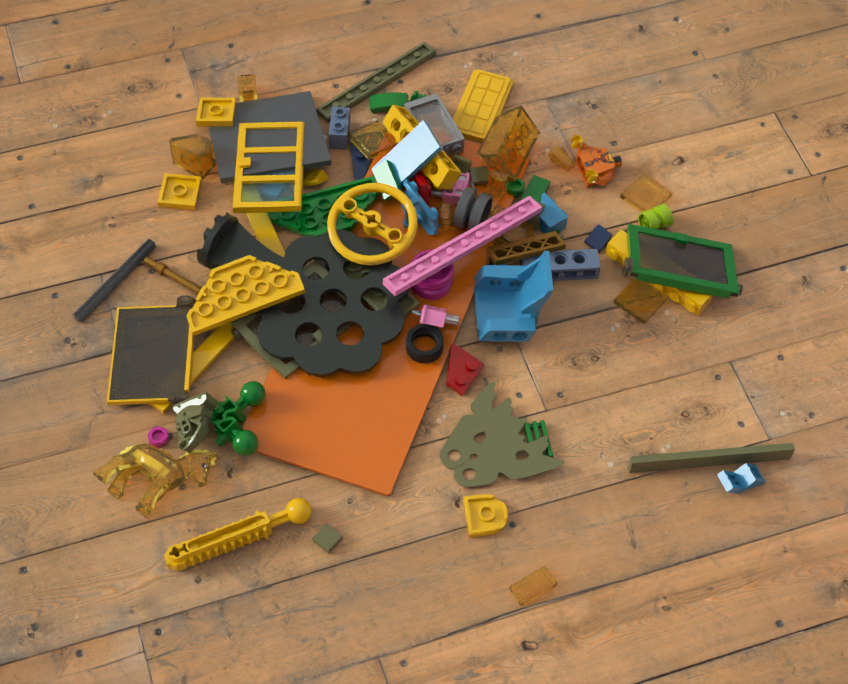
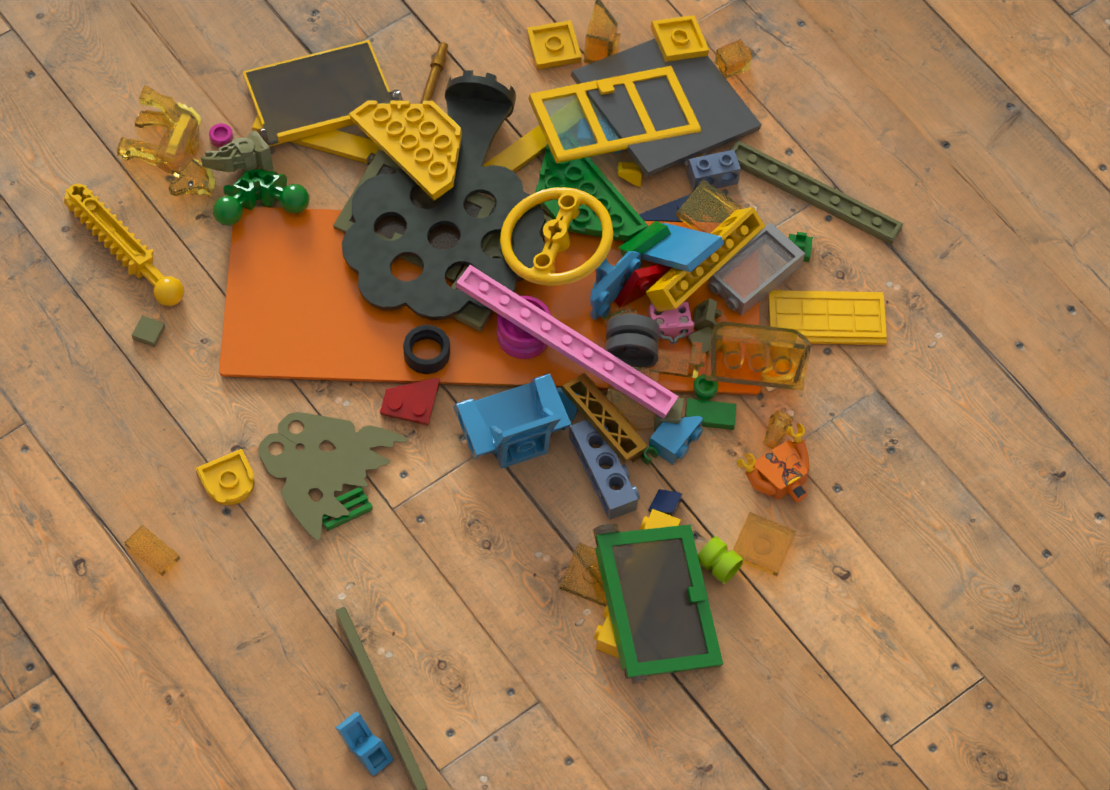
camera: 70 degrees right, 5 degrees up
(114, 280) = (406, 25): dark grey axle -> none
(384, 101) = (782, 212): green slope -> none
(436, 316) = (462, 346): bright pink piece -> none

